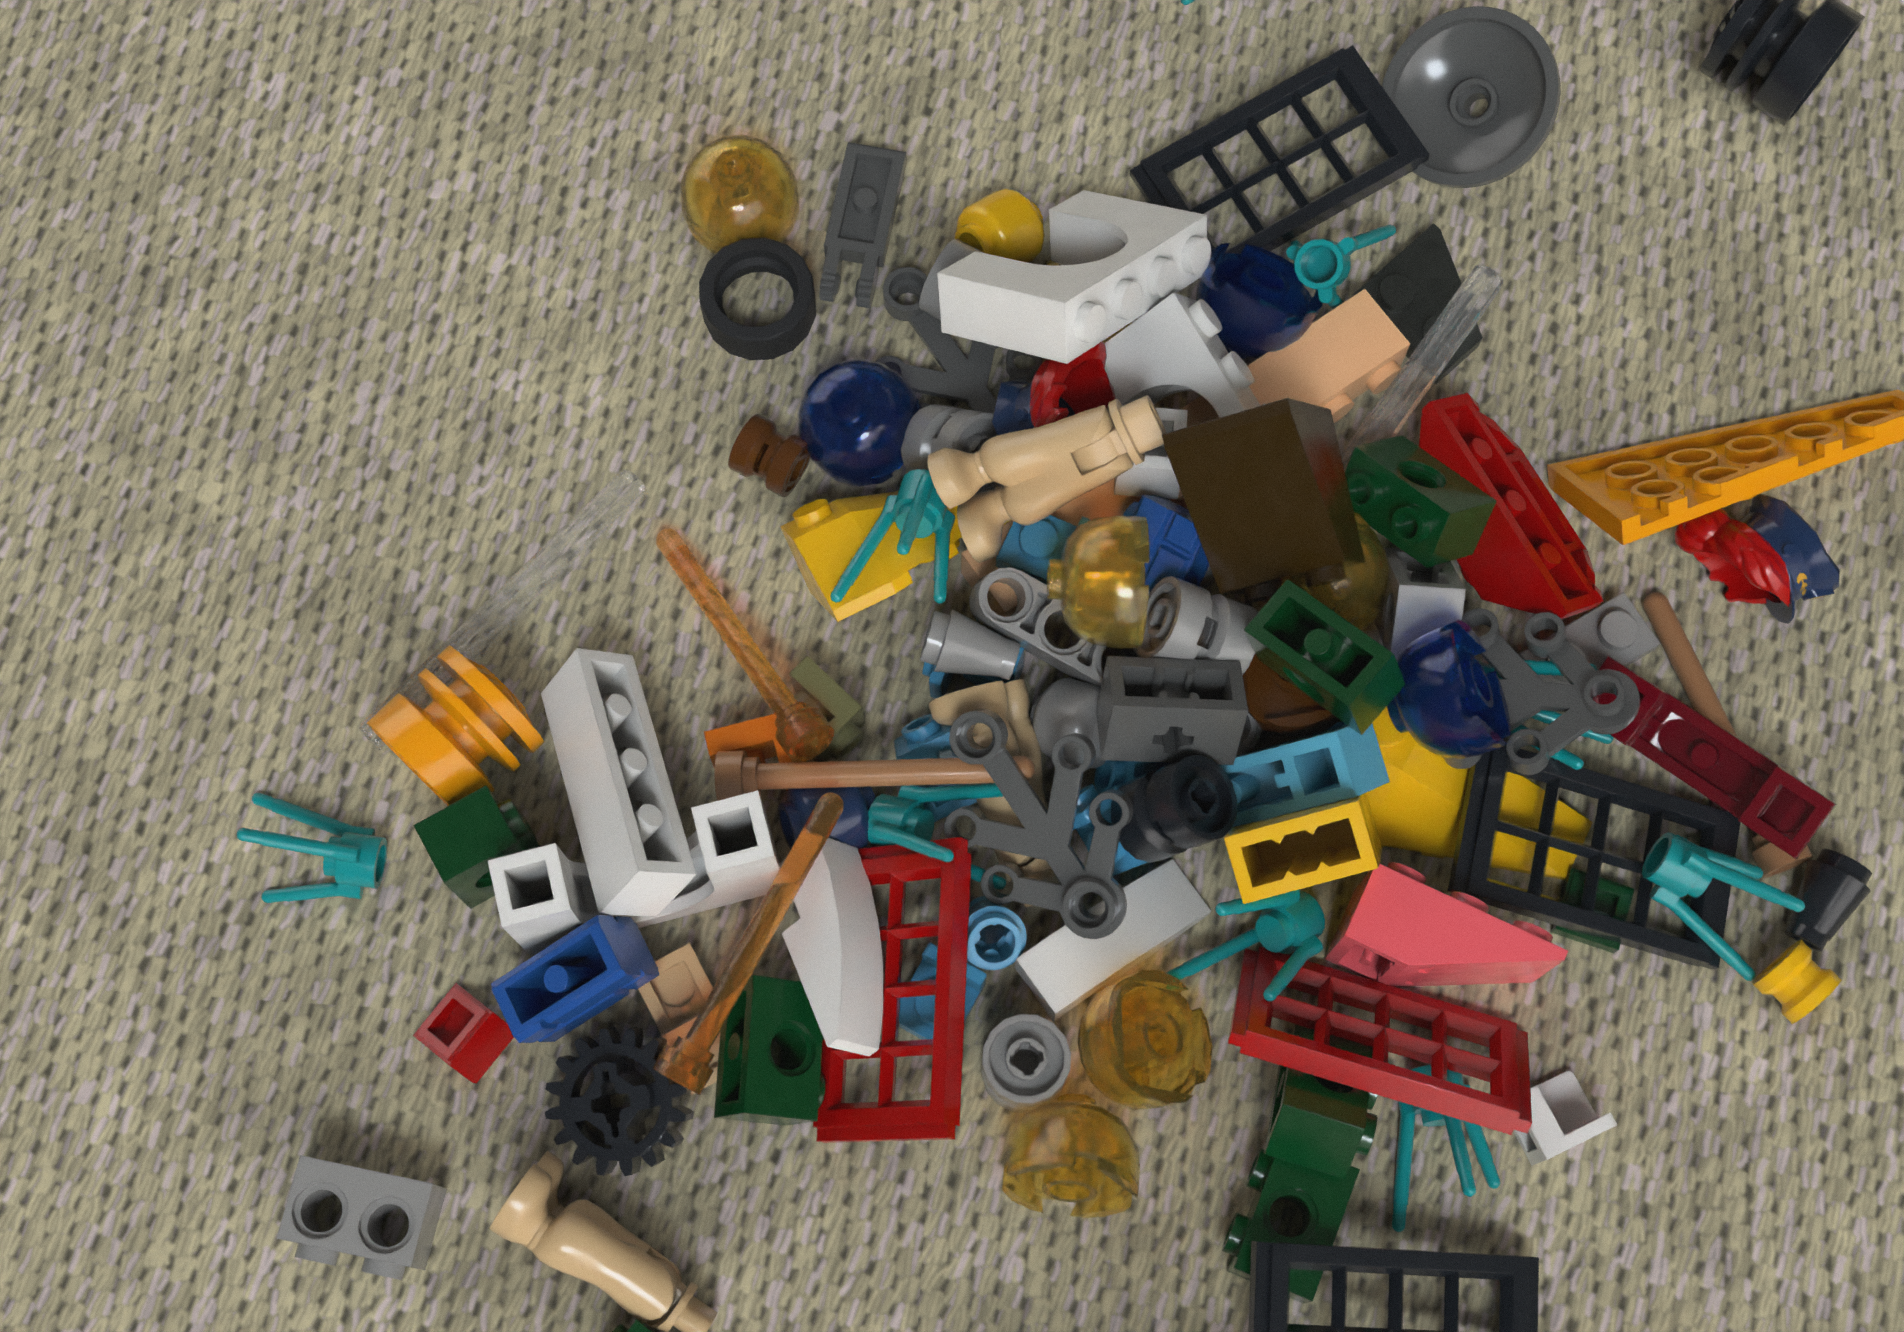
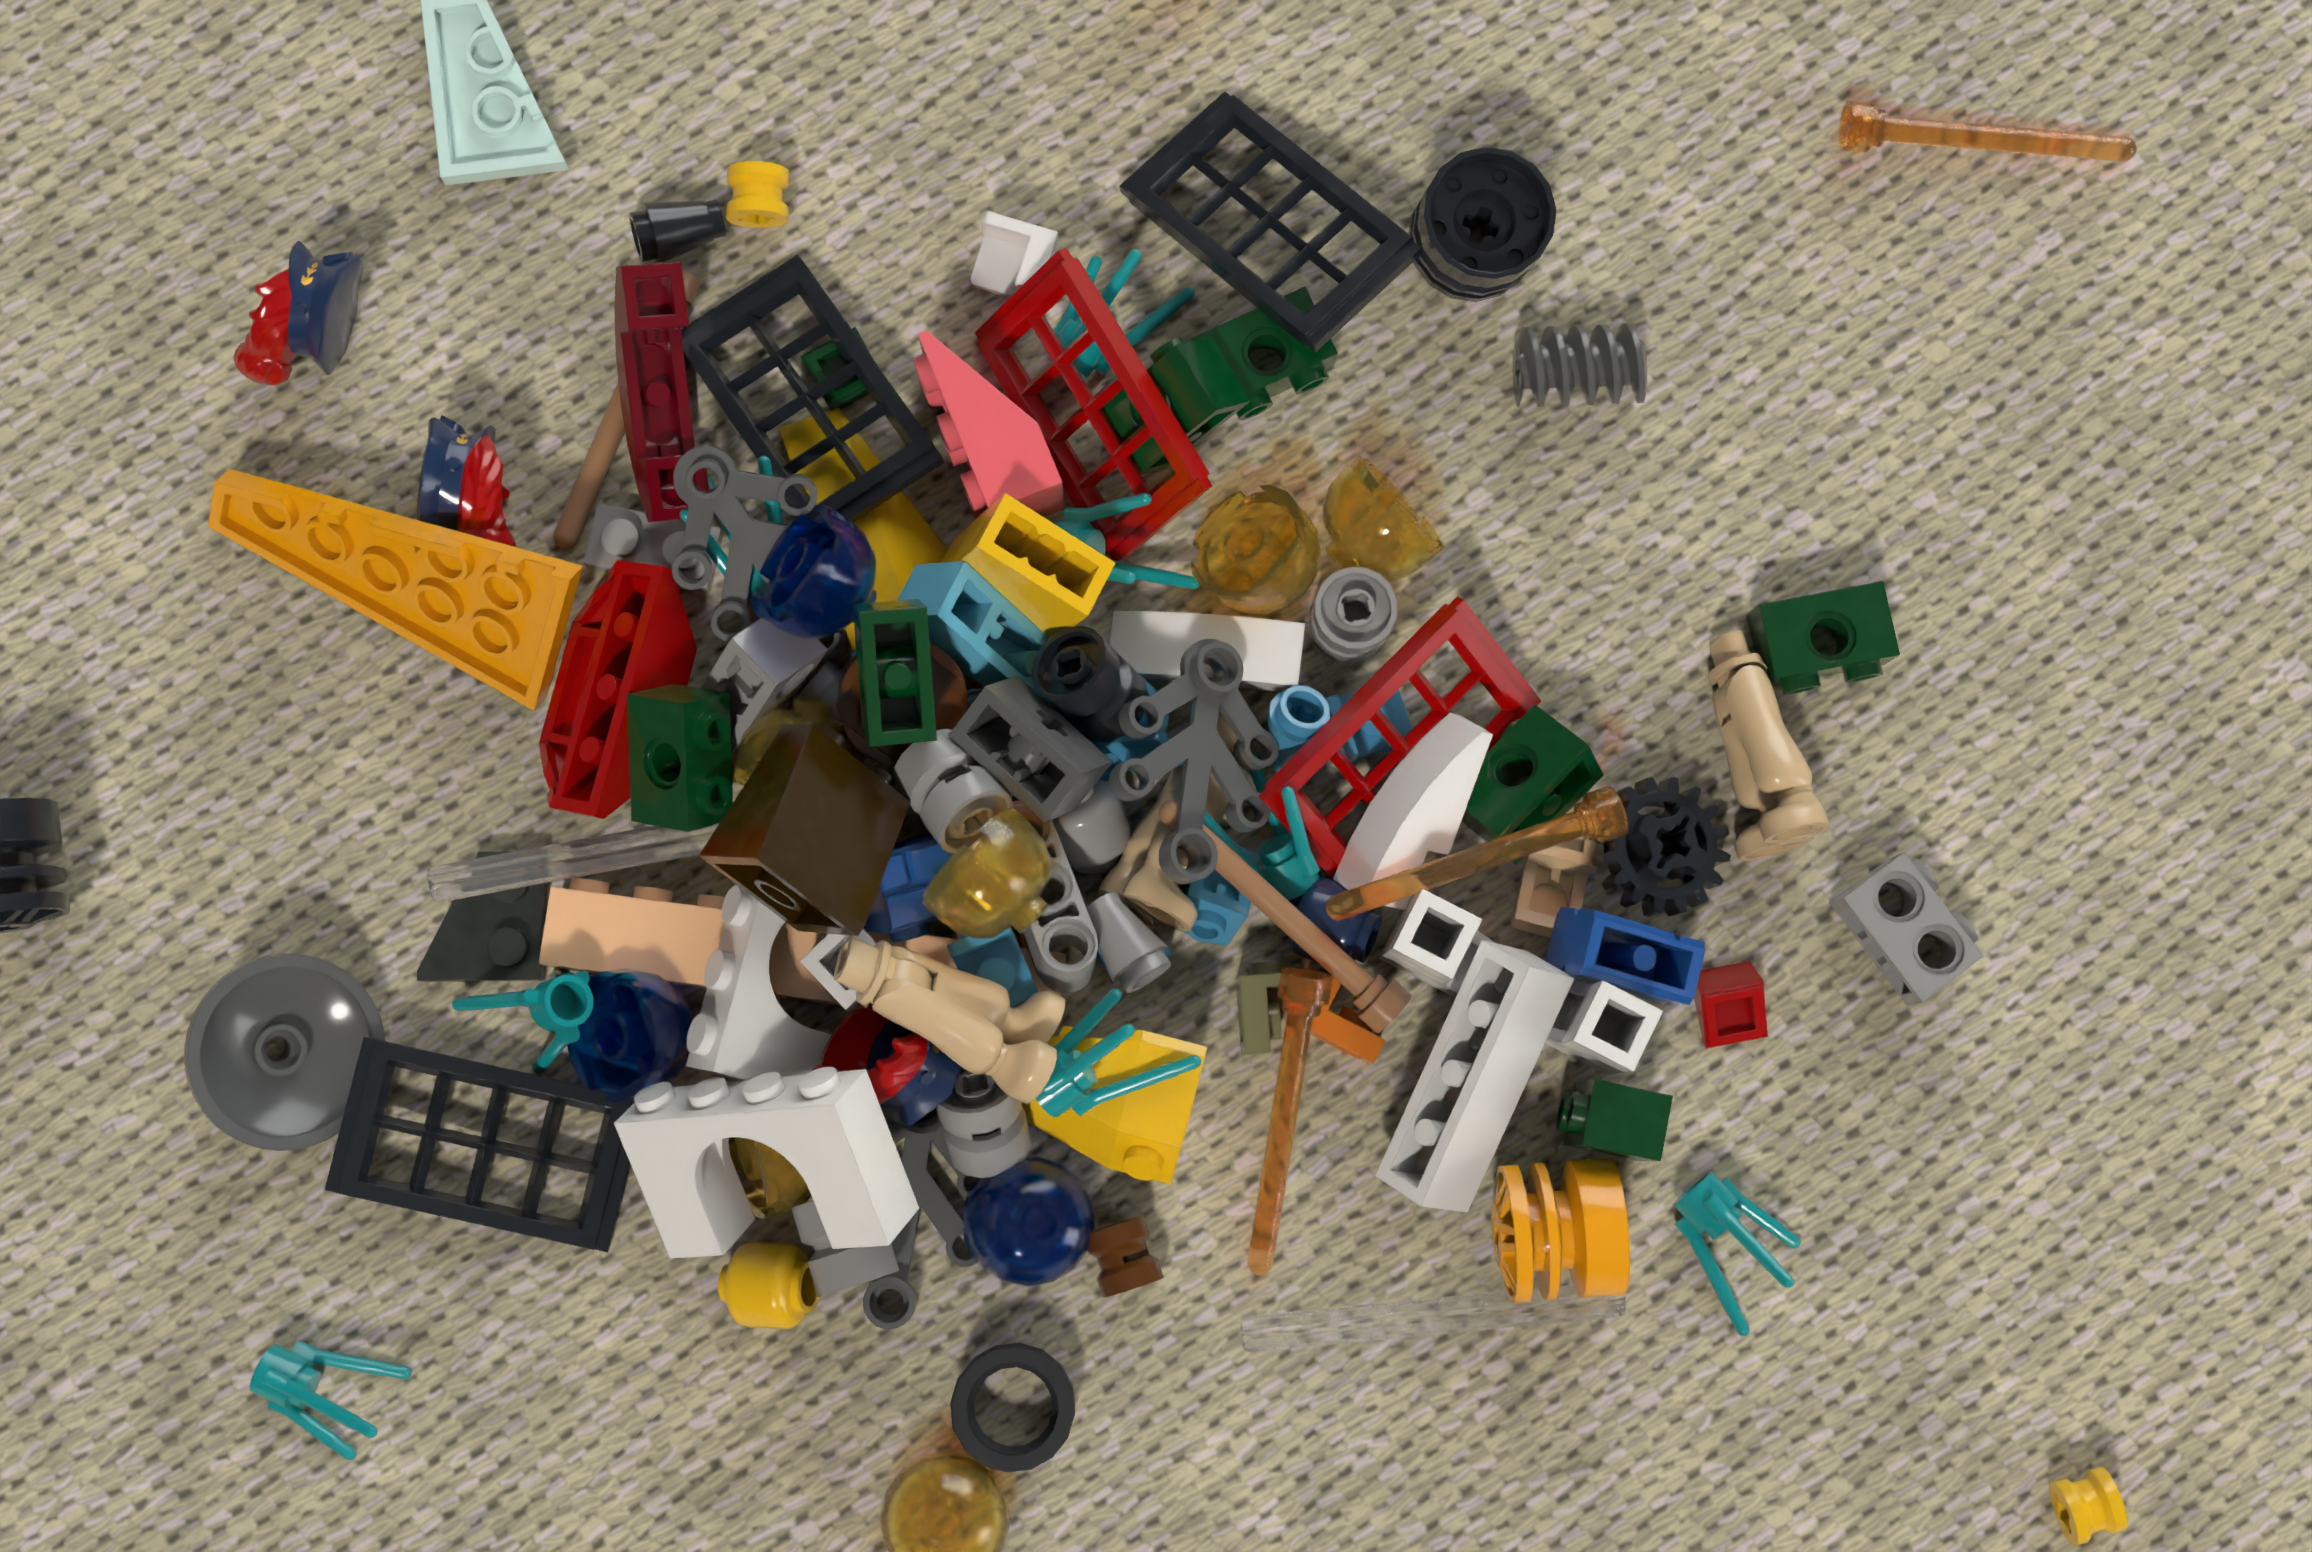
camera: 145 degrees left, 10 degrees up
(862, 218) = (862, 1406): dark grey hinge -> none
(1685, 868) = (763, 331): teal plant -> none

